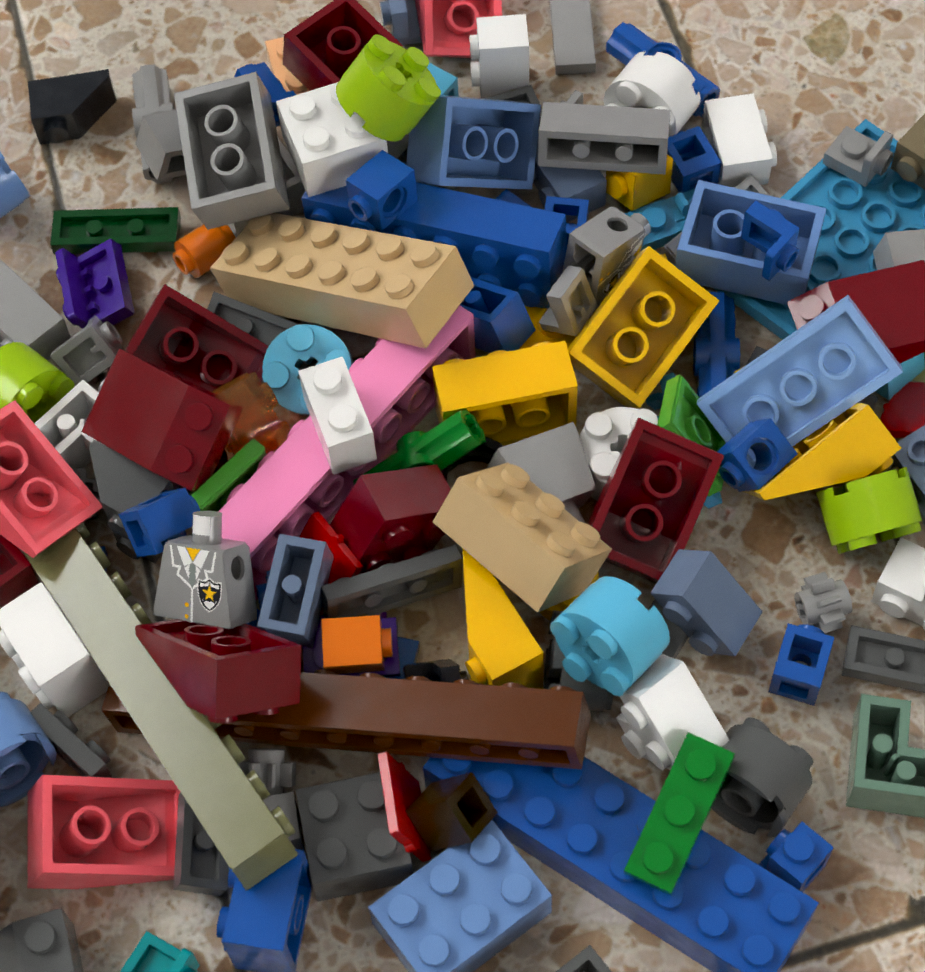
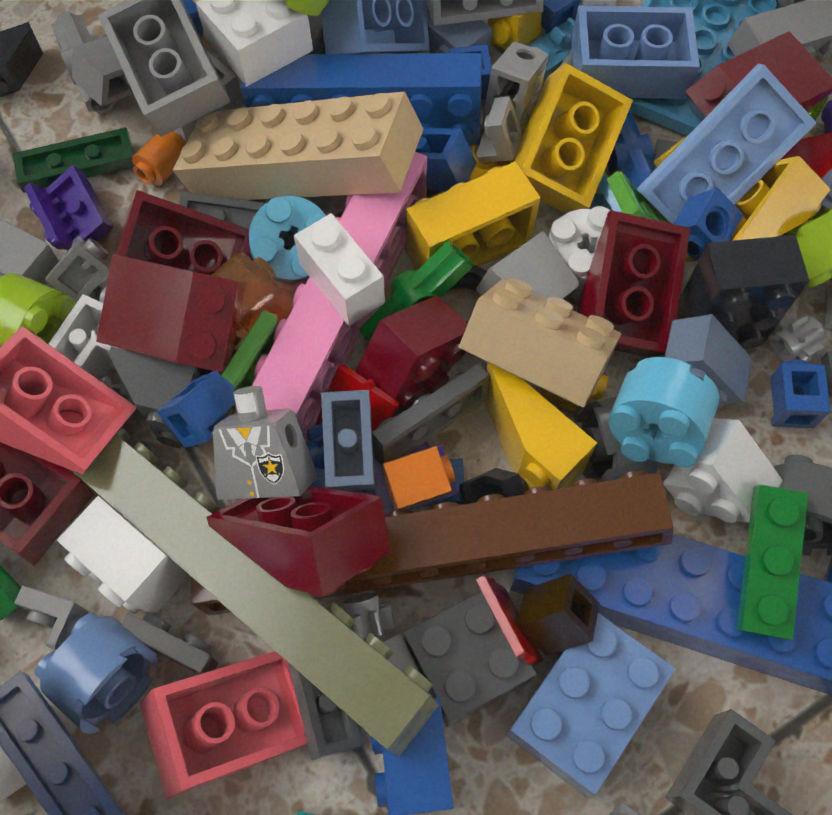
camera: 20 degrees left, 5 degrees up
(381, 190) = (314, 62): blue brick -> none
(763, 534) = (746, 286): none -> black brick
(772, 235) = (663, 34): blue bracket -> none

